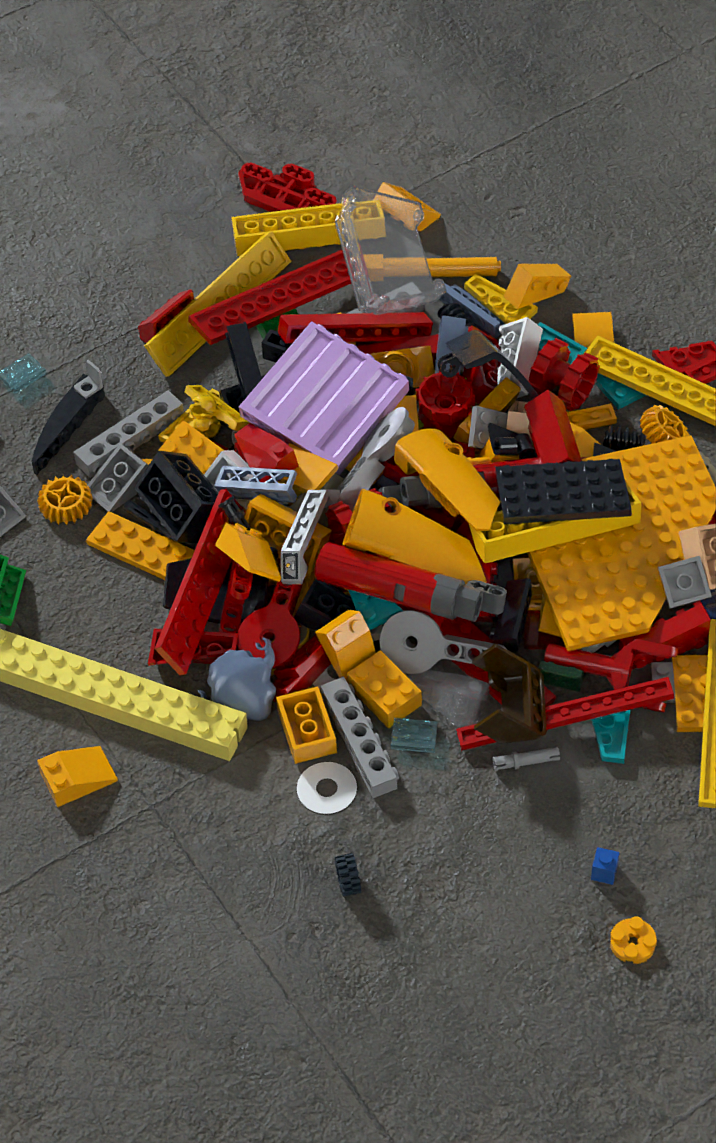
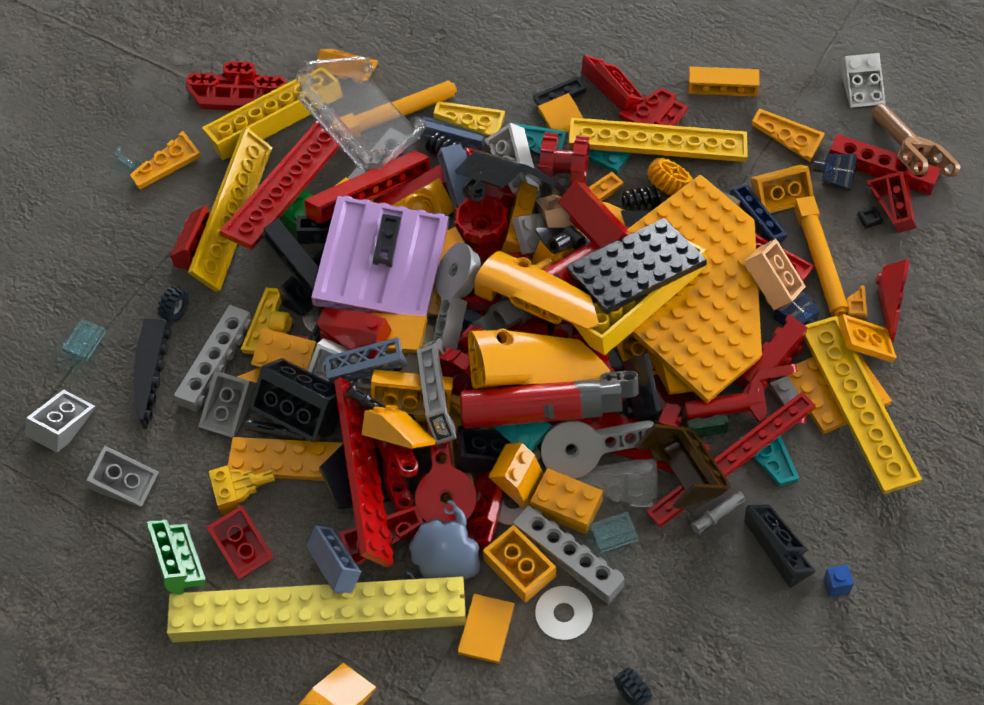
camera: 25 degrees left, 5 degrees up
(60, 502) = (198, 445): light orange gear -> none
(64, 603) = (240, 542): none -> red slope
(85, 553) = (235, 486): none -> yellow brick
(94, 378) = (157, 319): light grey bracket -> none
(117, 370) = (173, 304): none -> black bush
(134, 649) = (333, 559): none -> sand blue brick
(151, 230) = (134, 165): none -> clear light blue piece
(187, 238) = (173, 157): none -> light orange wing
(210, 405) = (278, 305): yellow plate -> none
(246, 771) = (486, 628): none -> light orange tile
(335, 379) = (387, 240): none -> black plate
(531, 652) = (671, 415): none -> red brick
(535, 283) = (494, 92): light orange wedge -> none
(570, 809) = (779, 543): none -> black slope
(619, 308) = (573, 86): none -> black plate
(635, 928) = (898, 648): light orange plate -> none
(664, 316) = (611, 82): none -> red slope
(684, 582) = (770, 303): light grey plate -> none

